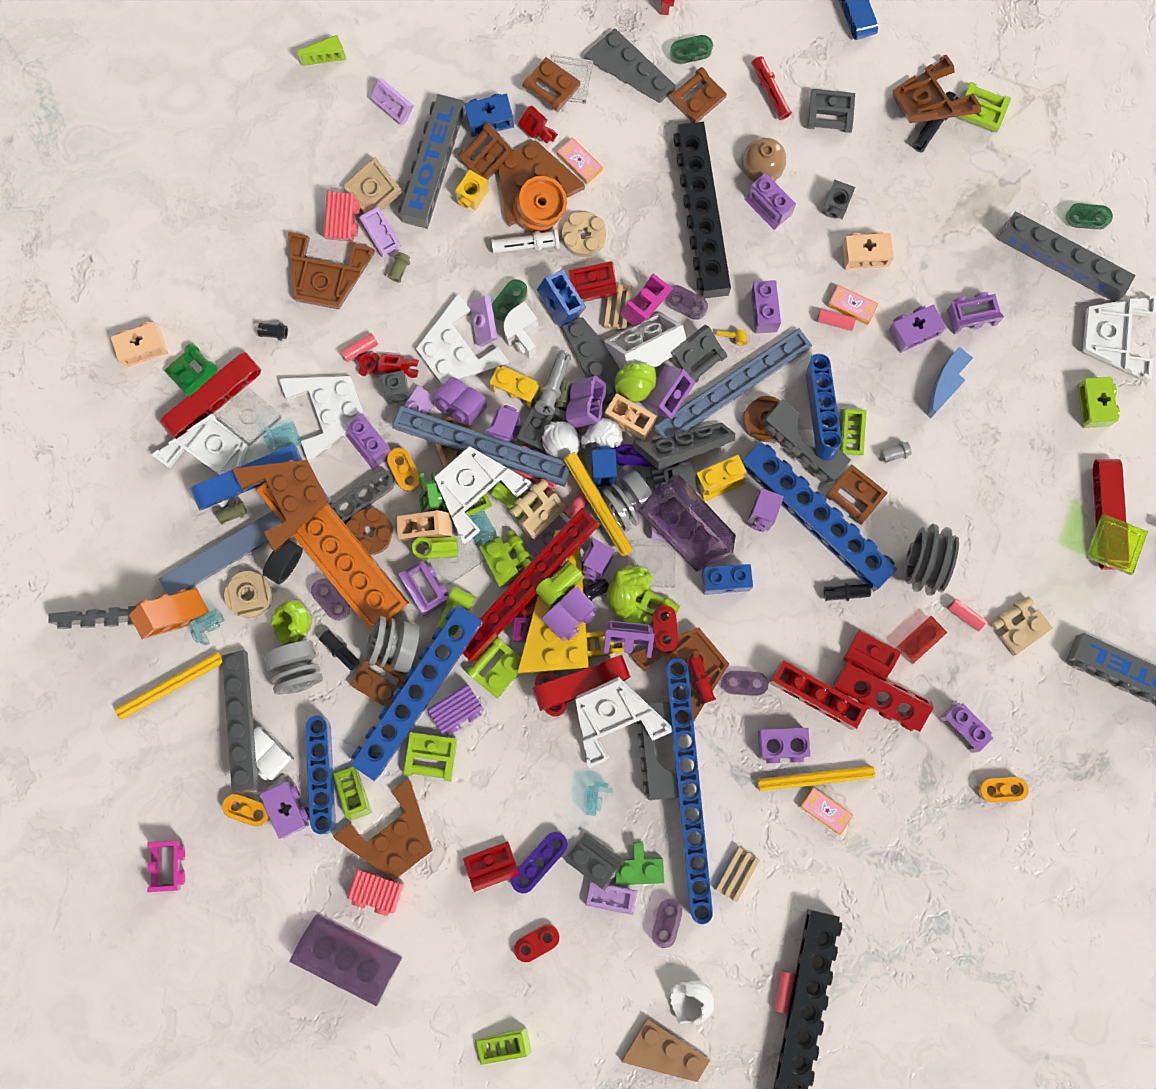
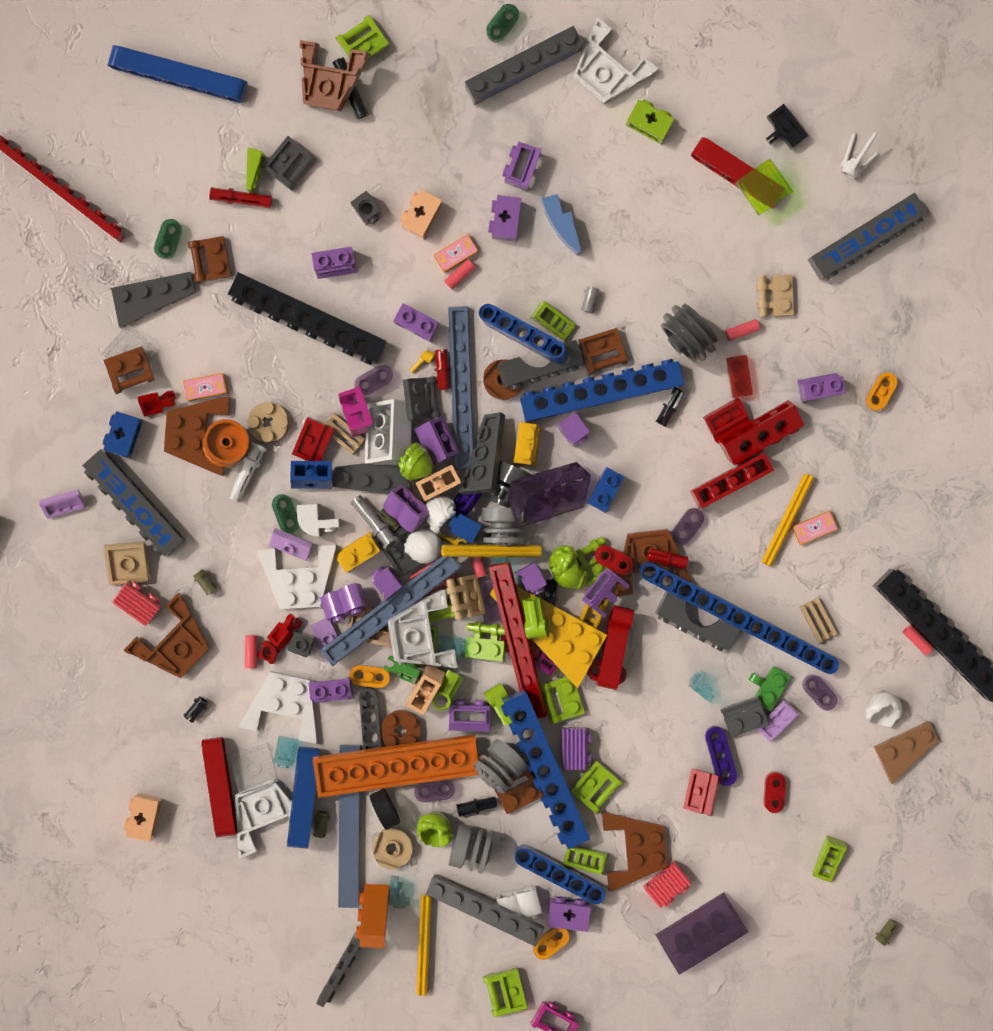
camera: 55 degrees left, 10 degrees up
(173, 802) = (511, 989): none -> lime plate
(185, 375) = (192, 796): green plate -> none
(294, 491) = (340, 770): dark orange wing -> none
(380, 231) = (166, 578): lavender plate -> none
(472, 182) = (170, 484): yellow brick -> none
(491, 156) = (160, 454): dark orange plate -> none
(570, 614) = (561, 625): medium lavender brick -> none
(610, 709) = (648, 638): white wing -> none
(737, 358) = (442, 369): none -> red axle
(762, 157) = (297, 243): medium nougat cylinder -> none
(783, 738) = (745, 524): medium lavender brick -> none
(804, 83) = (255, 163): none -> lime slope

